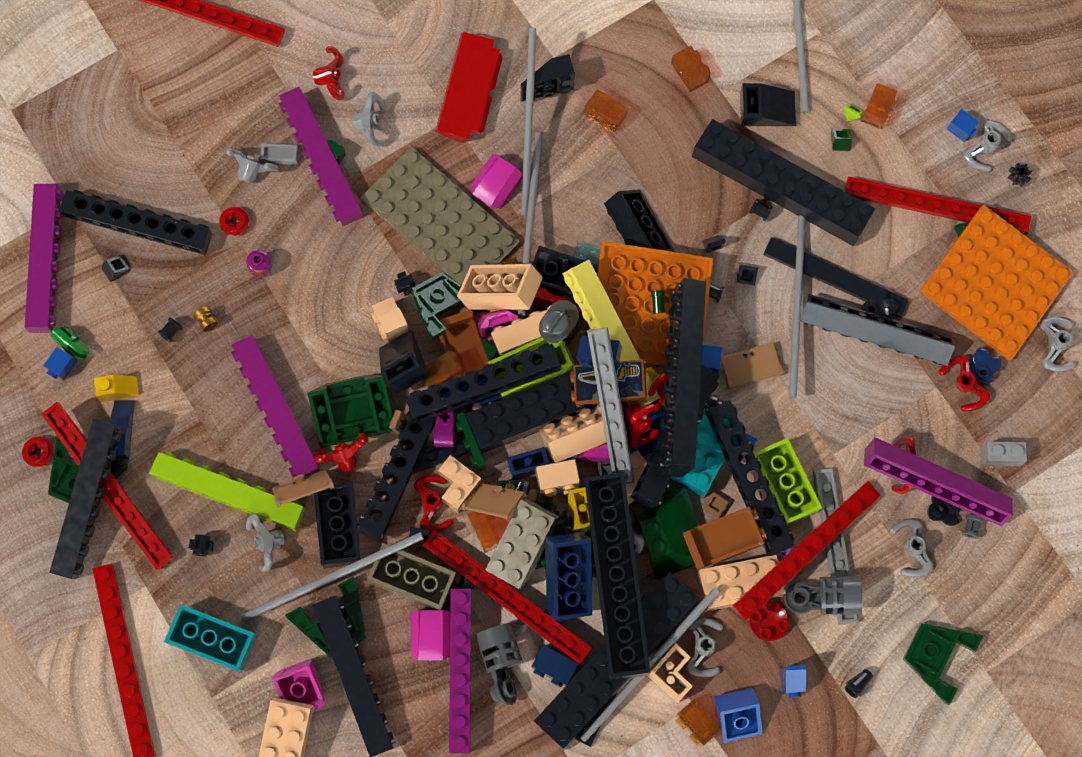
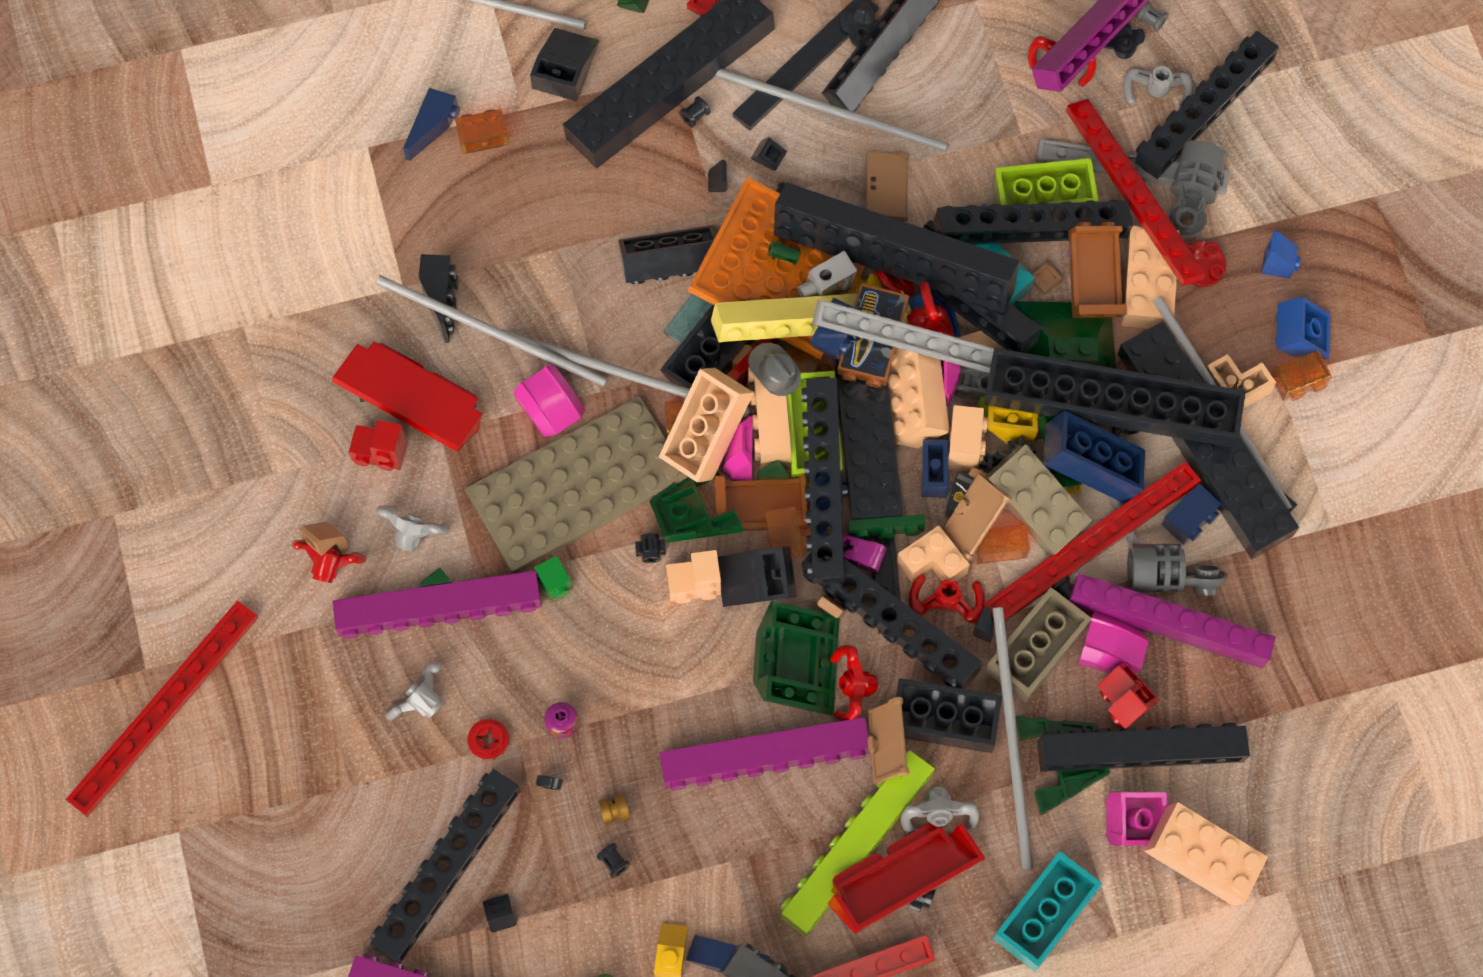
camera: 70 degrees left, 5 degrees down
(213, 270) = (549, 782): none -> black tile
(216, 535) = (908, 872): none -> red slope
(279, 153) = (412, 657): light grey tile -> none
(342, 64) = (323, 537): none -> medium nougat slope
(362, 226) = (553, 578): none -> green brick
(391, 655) = (1128, 694): none -> red brick
(422, 80) = (379, 445): none -> red brick
(605, 111) = (502, 245): clear orange brick -> none
(648, 346) = (830, 277): none -> light grey torso
(687, 32) = (432, 120): none -> dark blue slope
(703, 647) = (1215, 342): light grey piece -> none
(857, 685) = (1301, 193): black cone -> none
(931, 651) = (1285, 107): dark green wing -> none
(974, 612) = (1262, 54): none -> black brick

